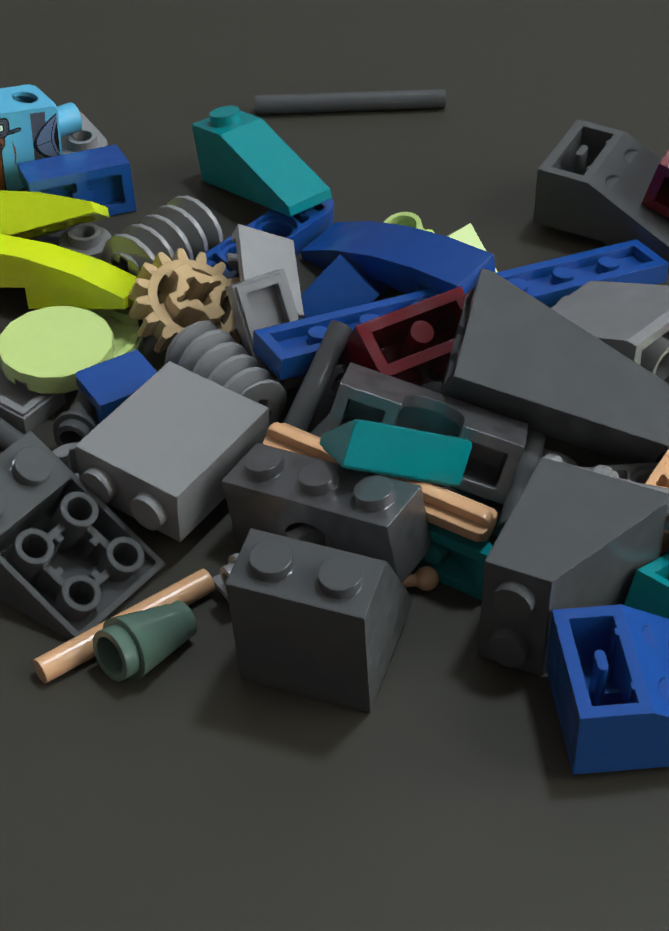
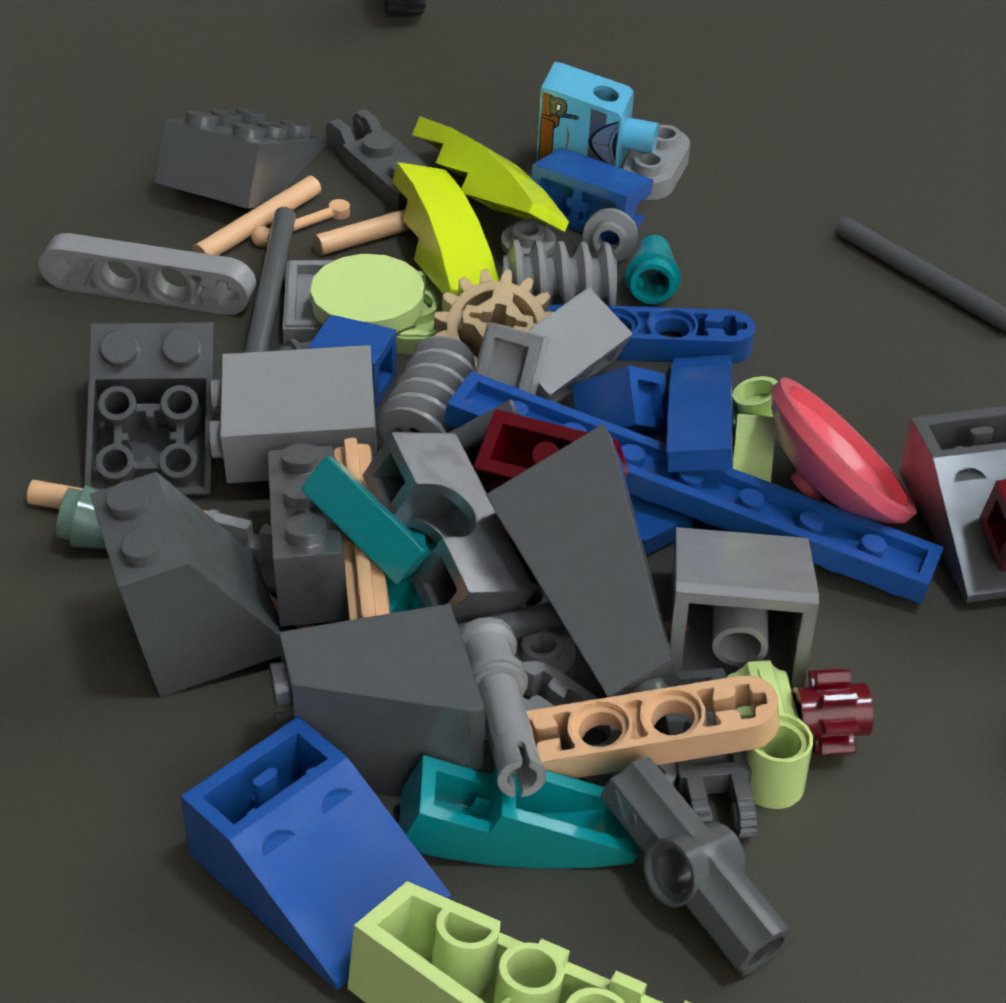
camera: 50 degrees right, 0 degrees up
(127, 195) = (615, 221): none -> light grey plate
(213, 195) = (653, 270): none -> teal cone
(255, 163) = (728, 262): teal slope -> none
(524, 226) = (835, 458): none -> coral dish

